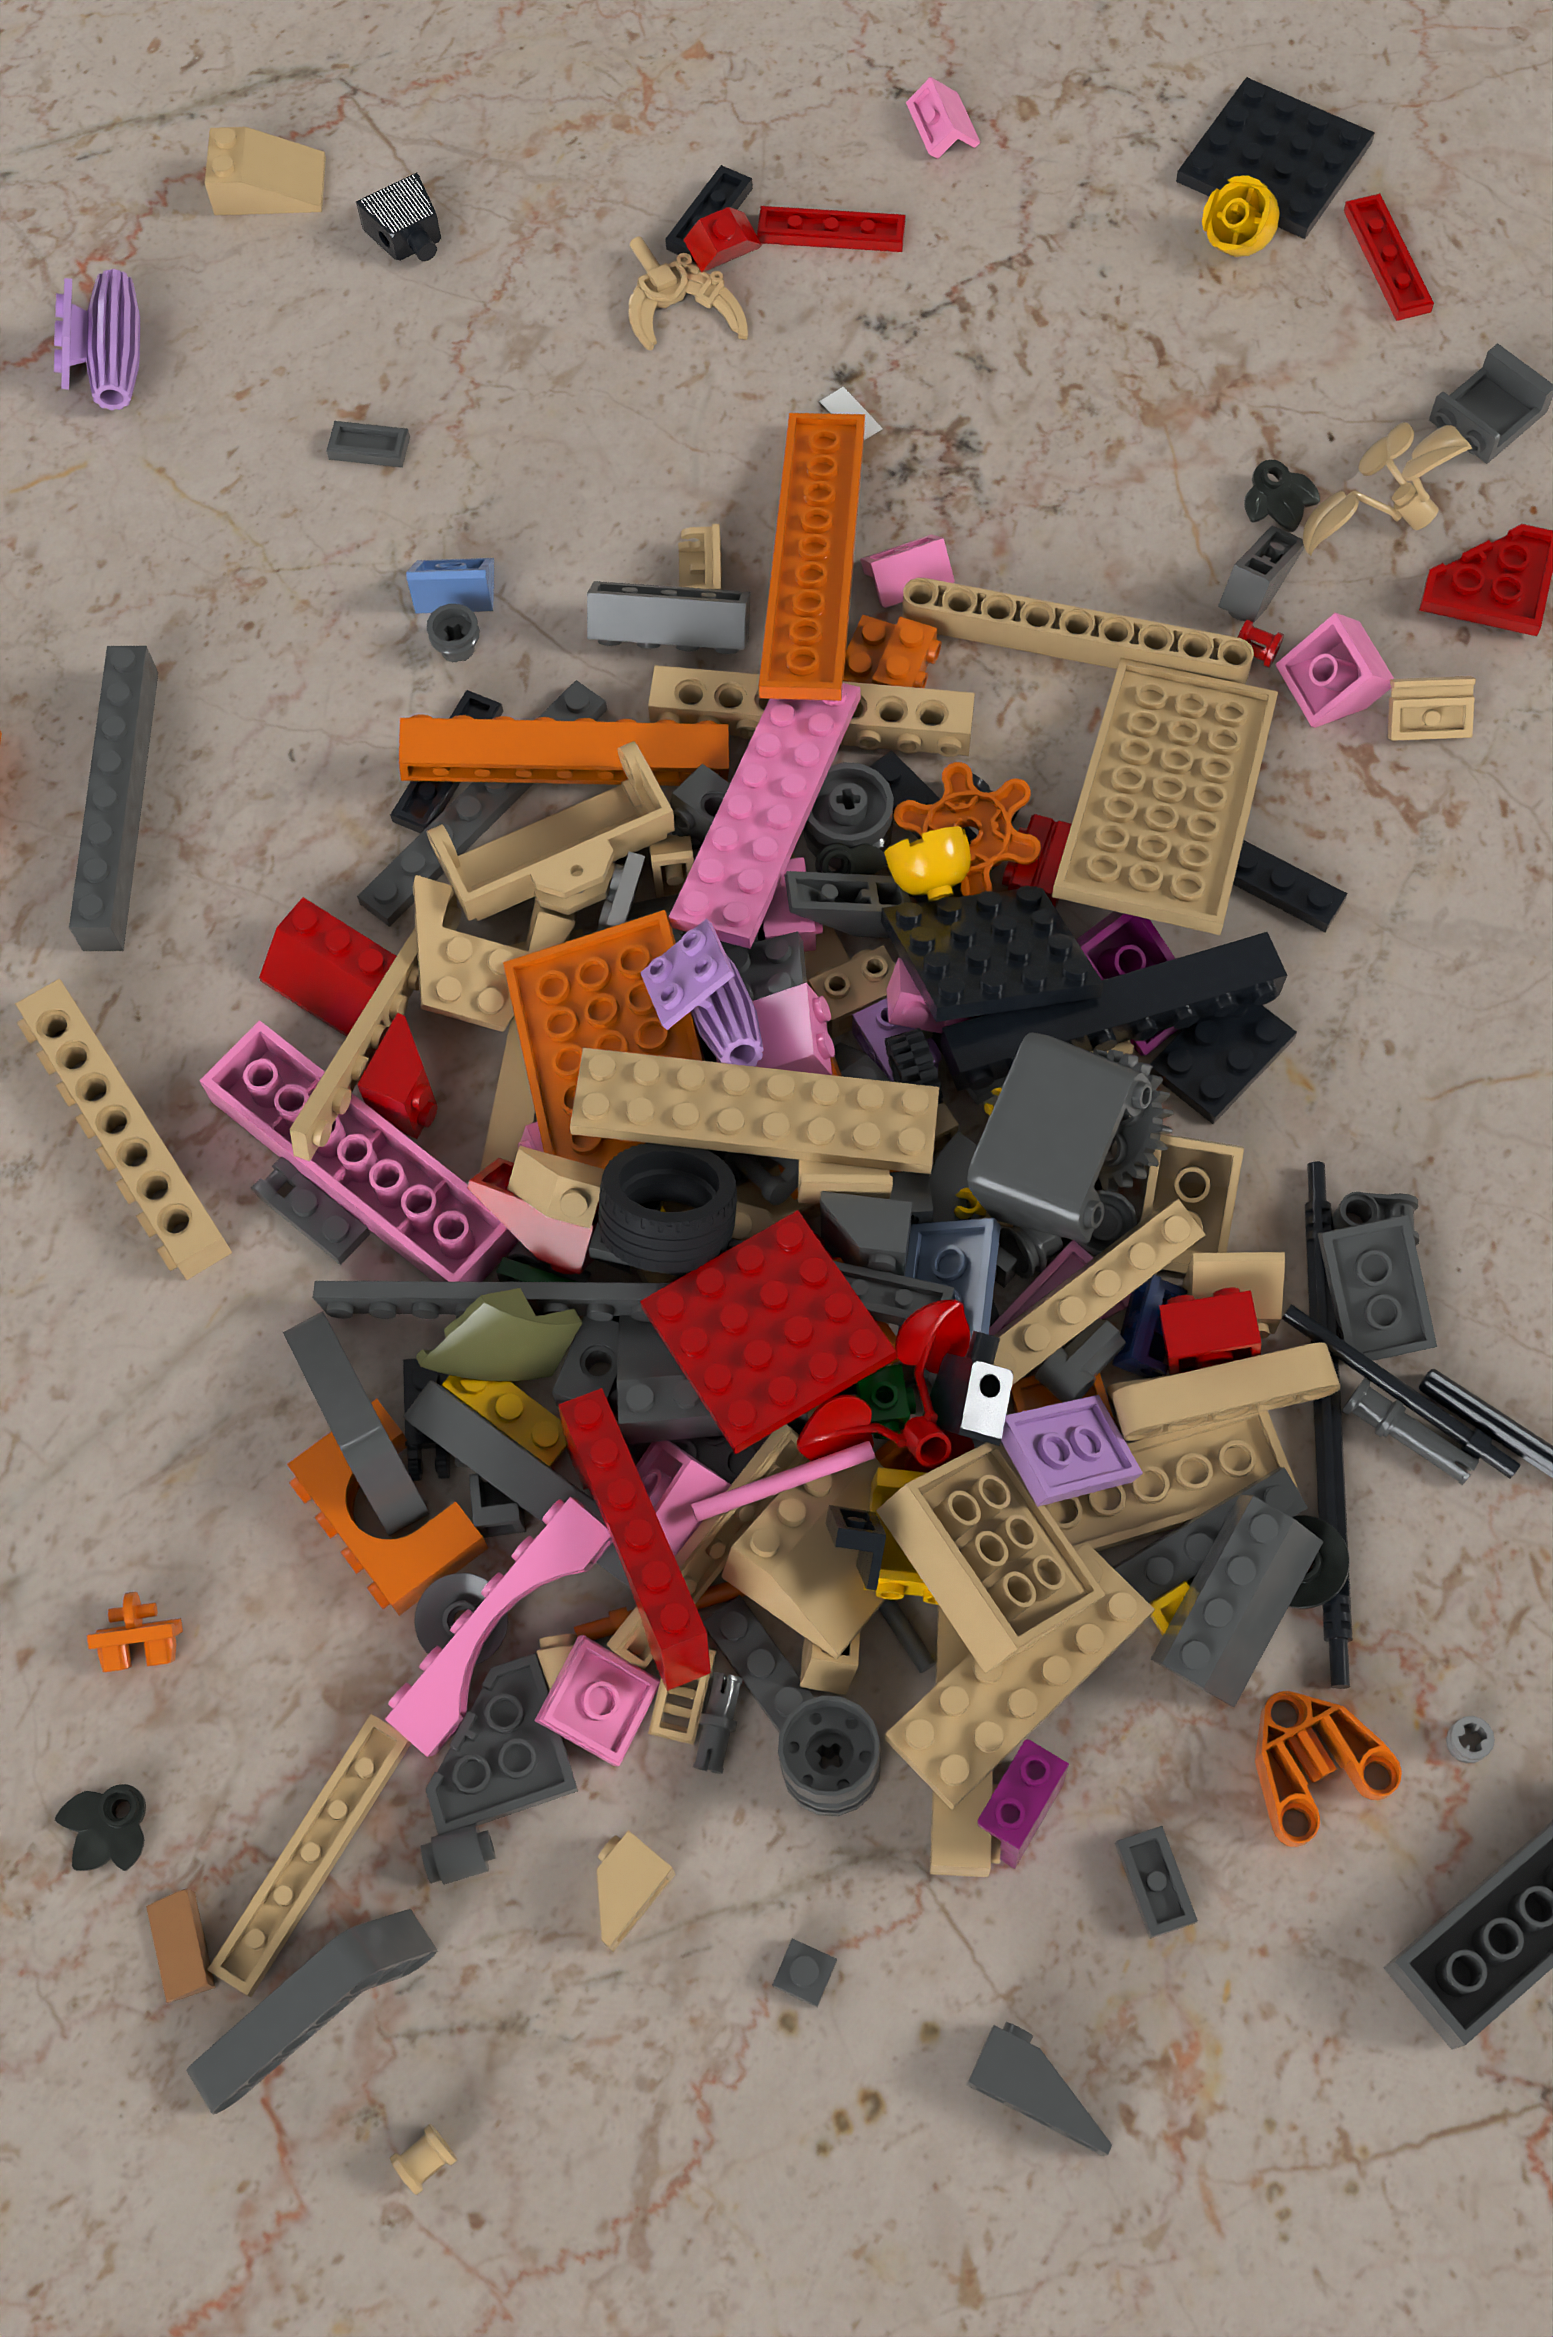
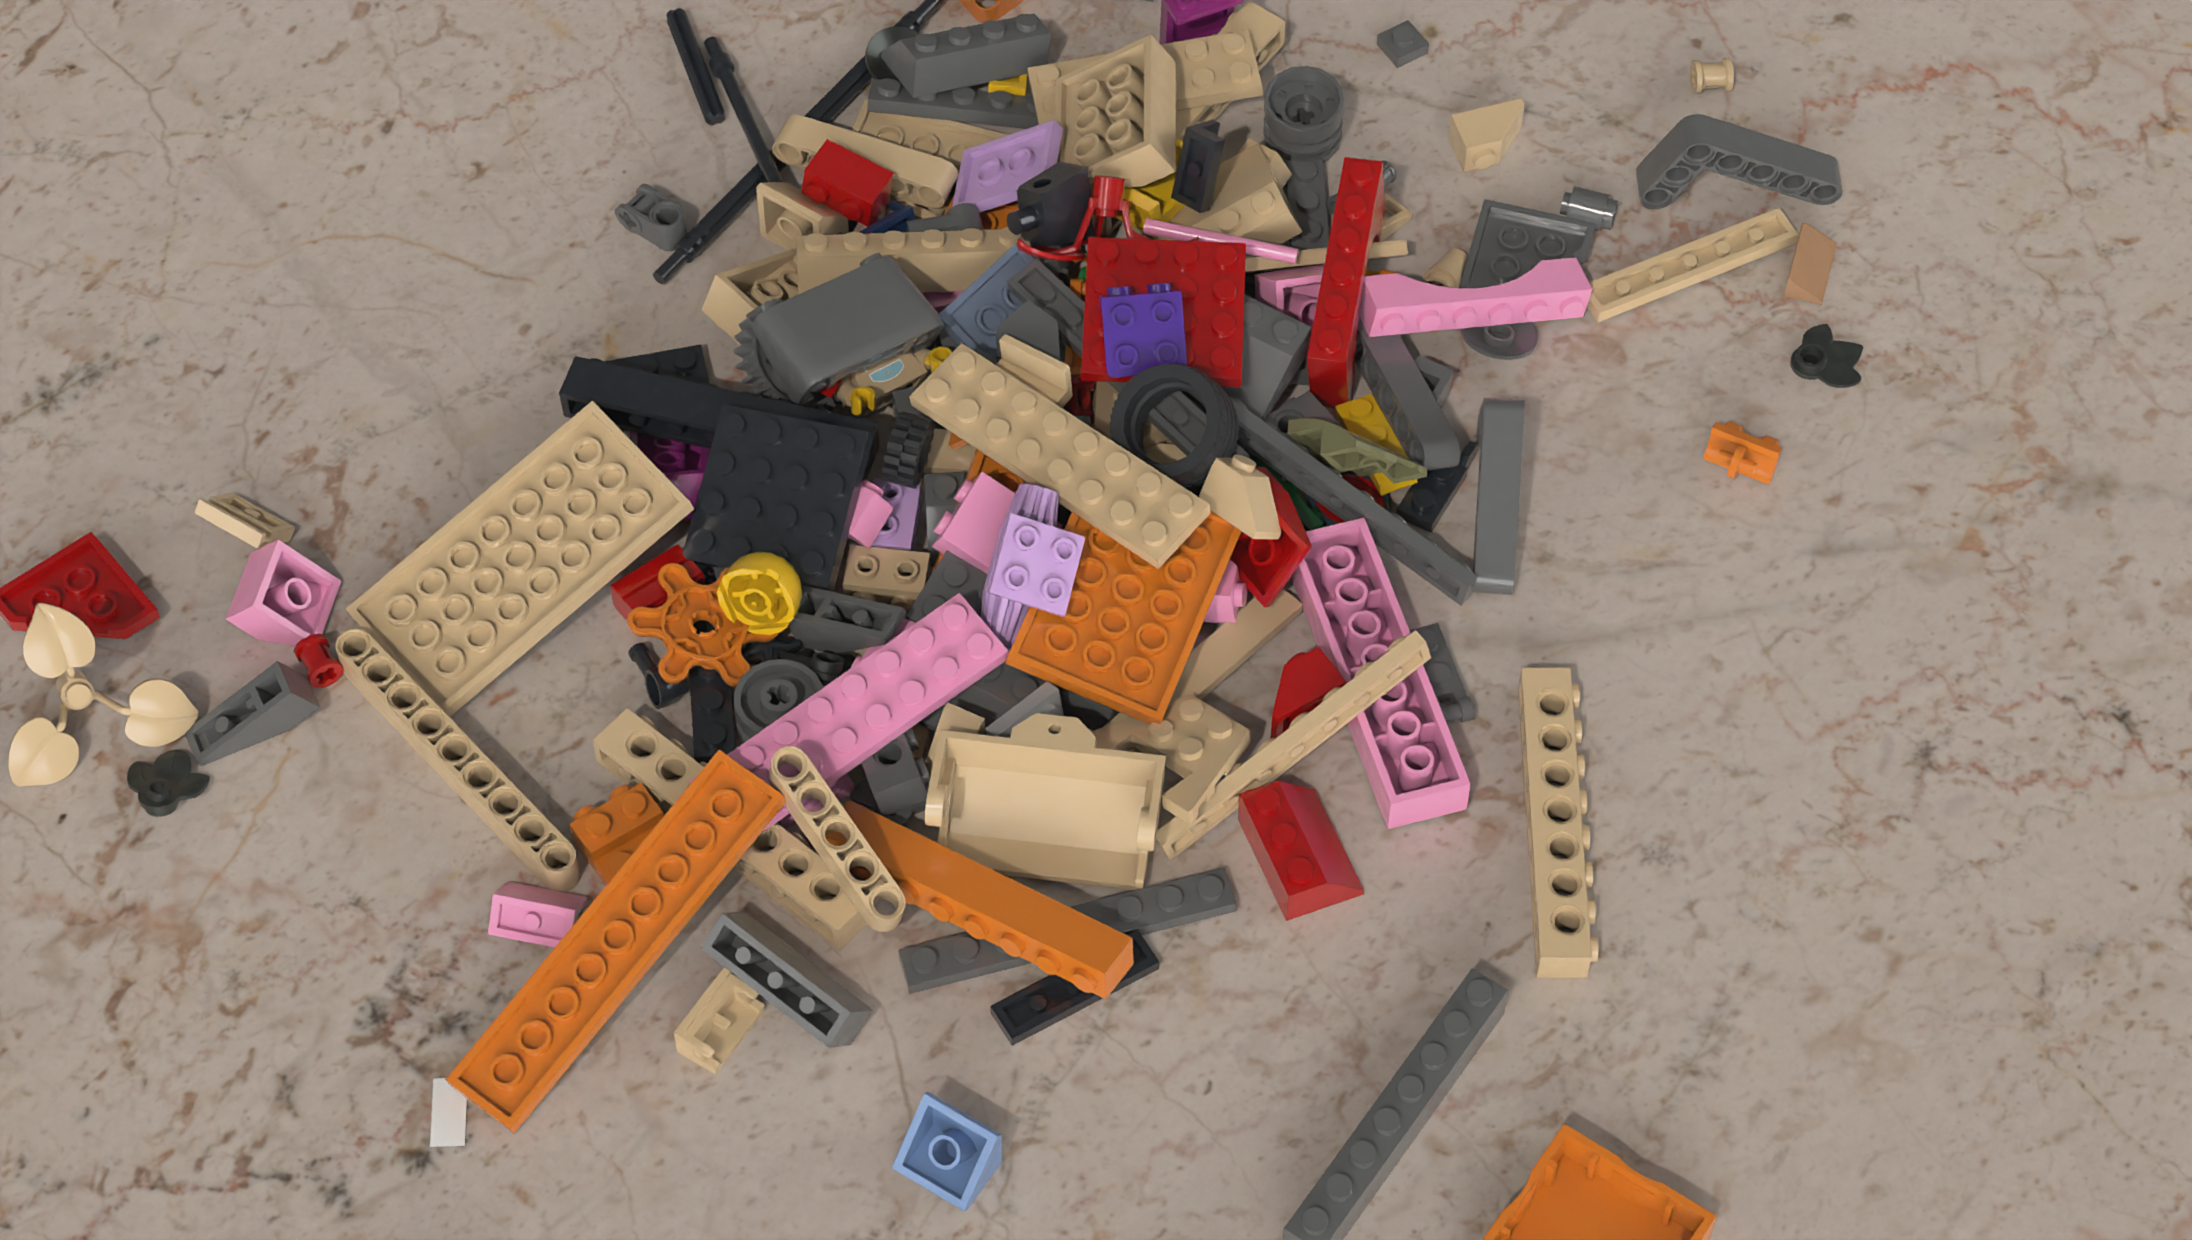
camera: 150 degrees left, 10 degrees down
(397, 1566) = (1525, 379): orange arch -> none
(453, 623) = (986, 1075): dark grey piece -> none
(598, 1700) = (1437, 236): bright pink tile -> none
(698, 697) = (837, 858): none -> tan beam
(764, 1269) = (1142, 328): none -> dark purple bracket
(1287, 887) = (479, 457): black plate -> none
(1378, 1288) = (700, 167): dark grey plate -> none
(1390, 1419) = (763, 103): dark grey pin -> none

